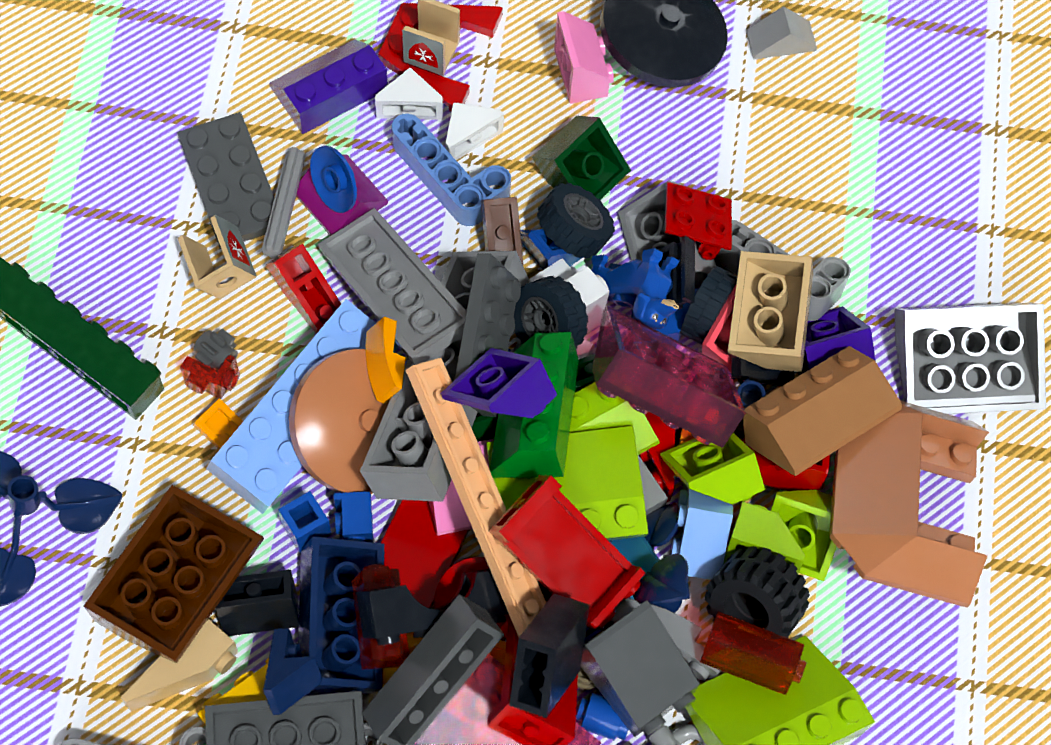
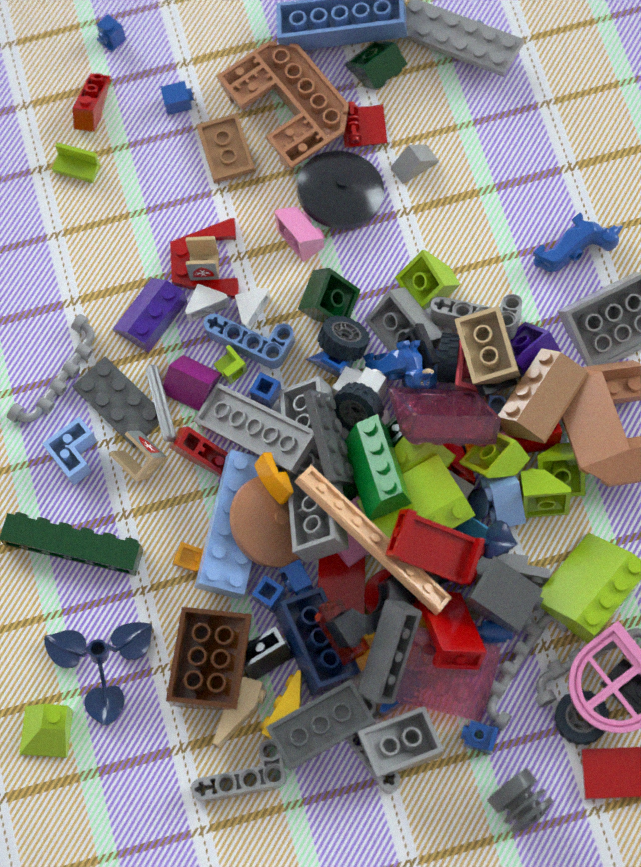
camera: 10 degrees left, 5 degrees up
(126, 206) = (66, 449): none -> light blue brick
(157, 124) = (58, 386): none -> light grey bar
(205, 378) = (168, 533): clear red bracket -> none
(214, 348) = (164, 513): dark grey gear -> none
(288, 673) = (306, 688): dark blue slope -> none
(333, 179) = (187, 377): blue dish -> none
(405, 196) = (231, 365): none -> lime panel
(434, 243) = (265, 390): none -> blue brick
(502, 225) = (300, 361): reddish brown plate -> none
(503, 385) = (355, 467): dark purple slope -> none
(549, 655) = (453, 612): black brick -> none
(700, 218) = (418, 306): red hinge -> none
(736, 179) = (427, 278): none -> lime slope
(753, 654) = (565, 558): clear red brick -> none
(759, 591) = (553, 524): black tyre -> none
(960, 227) = (573, 243): none -> blue animal

